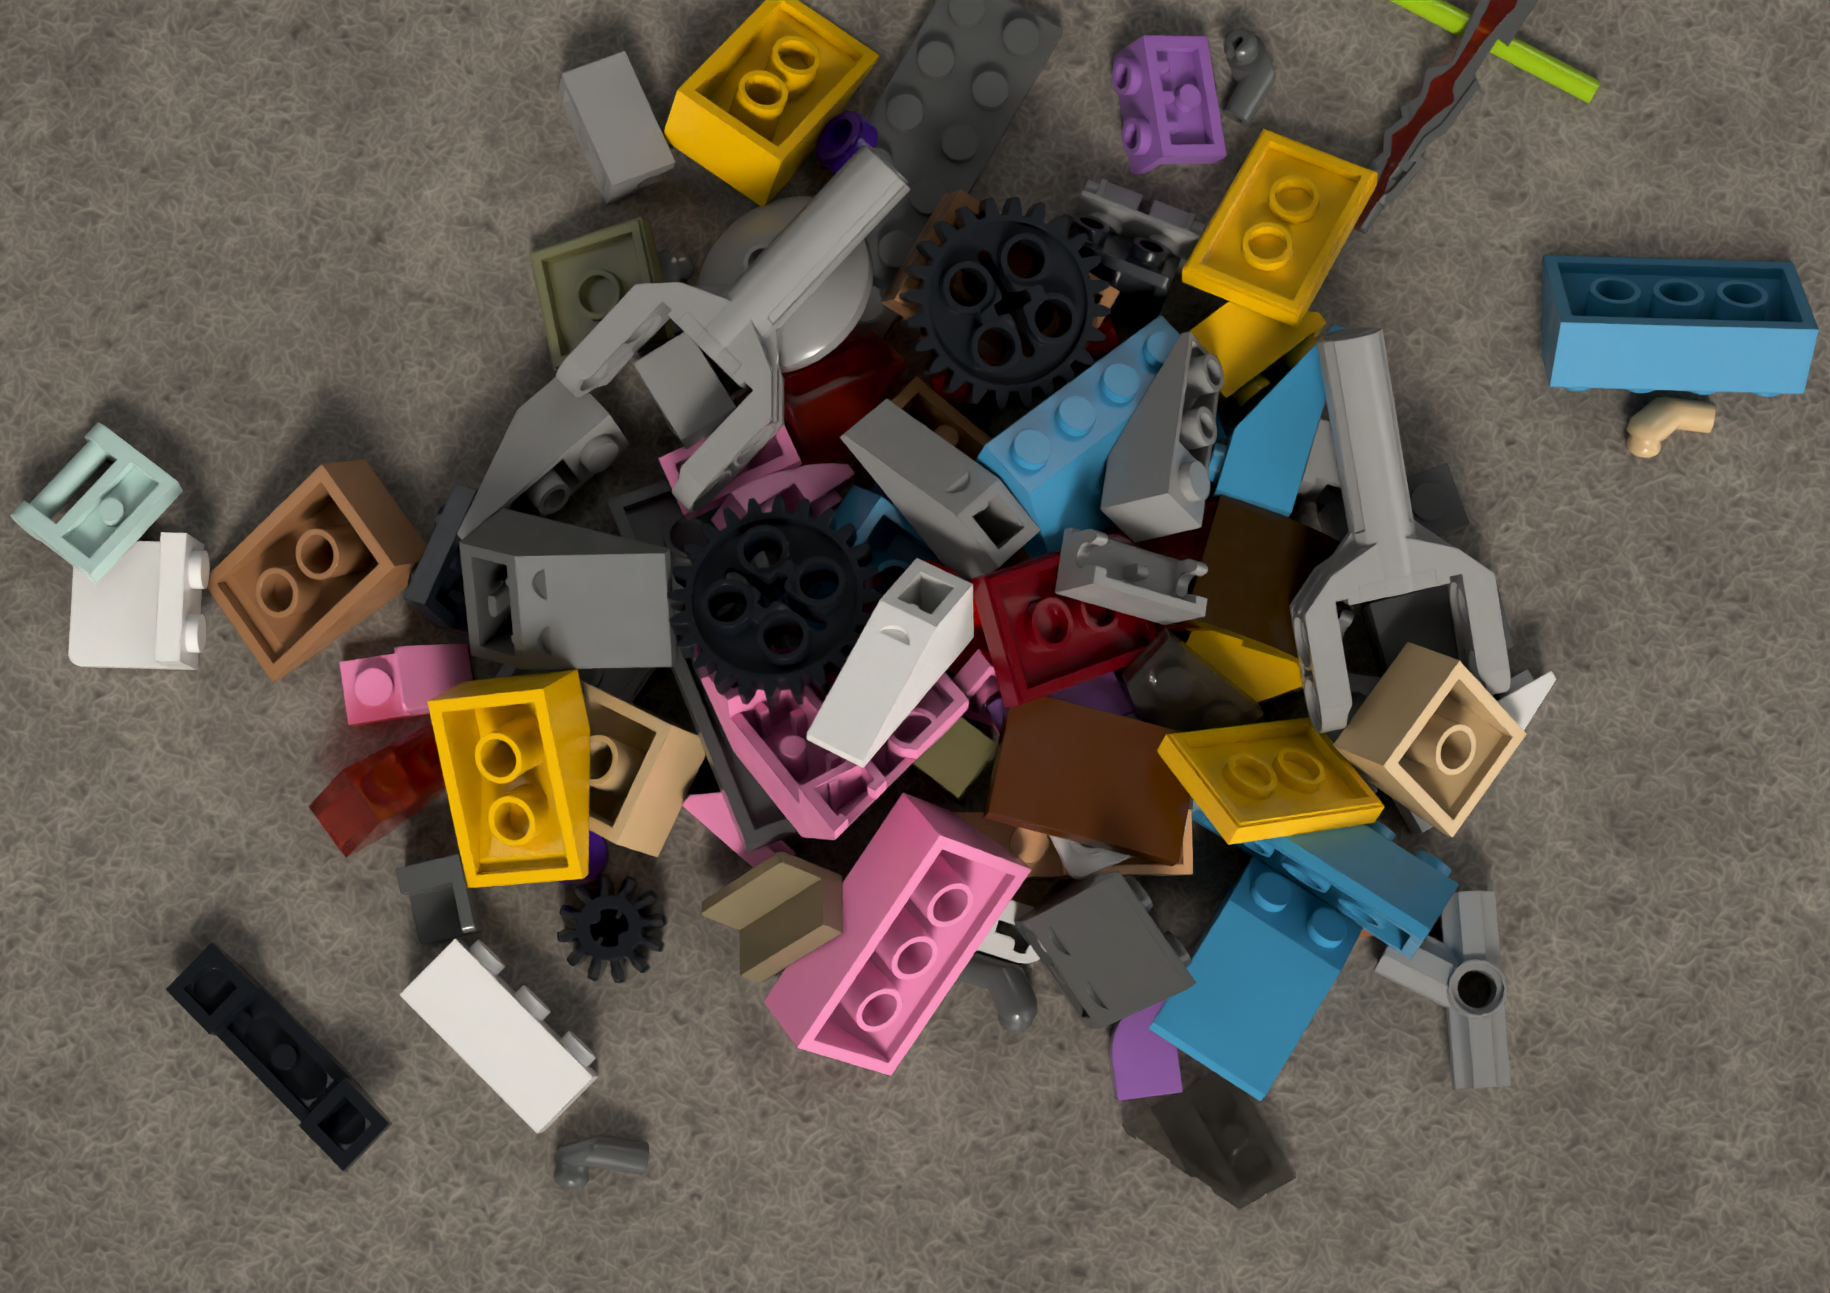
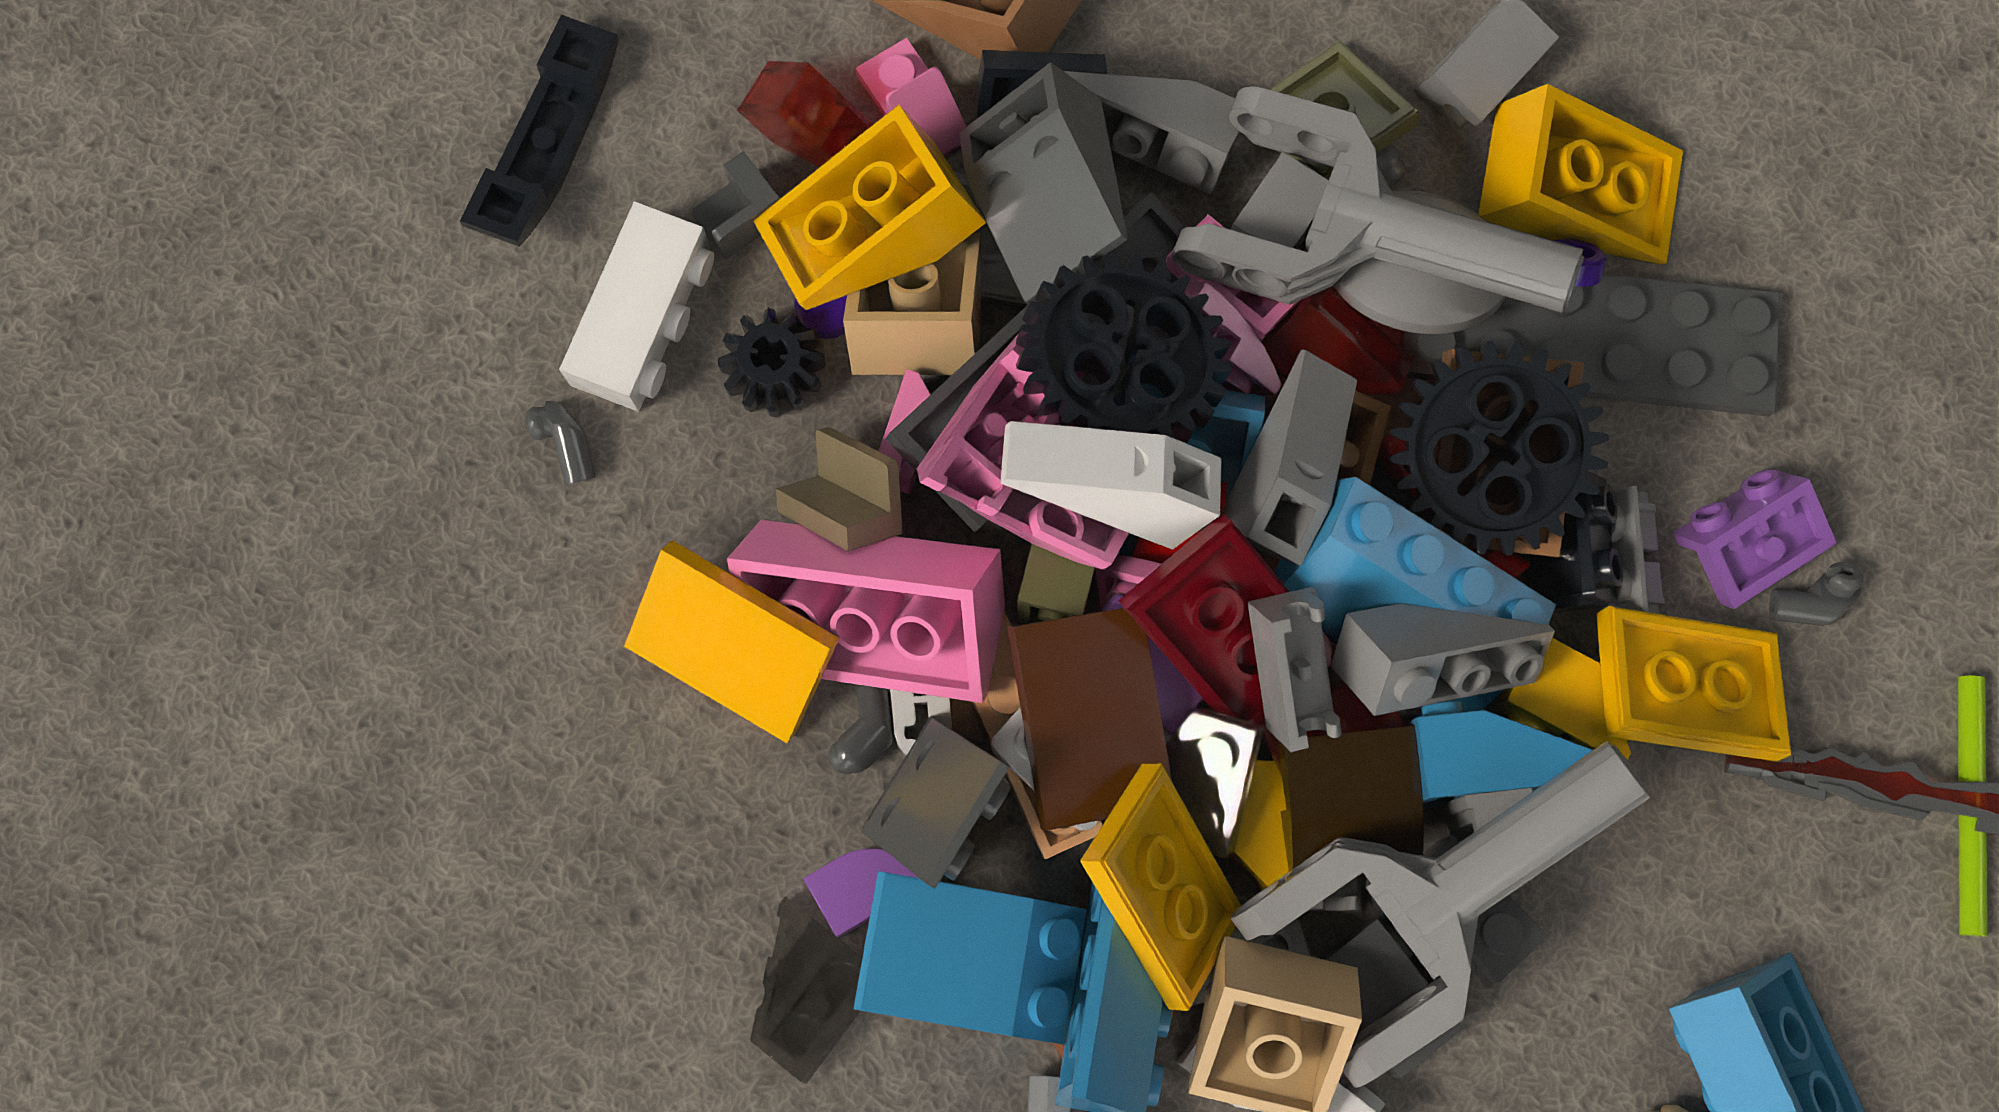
camera: 65 degrees right, 5 degrees down
(868, 1078) = (730, 641): none -> yellow tile

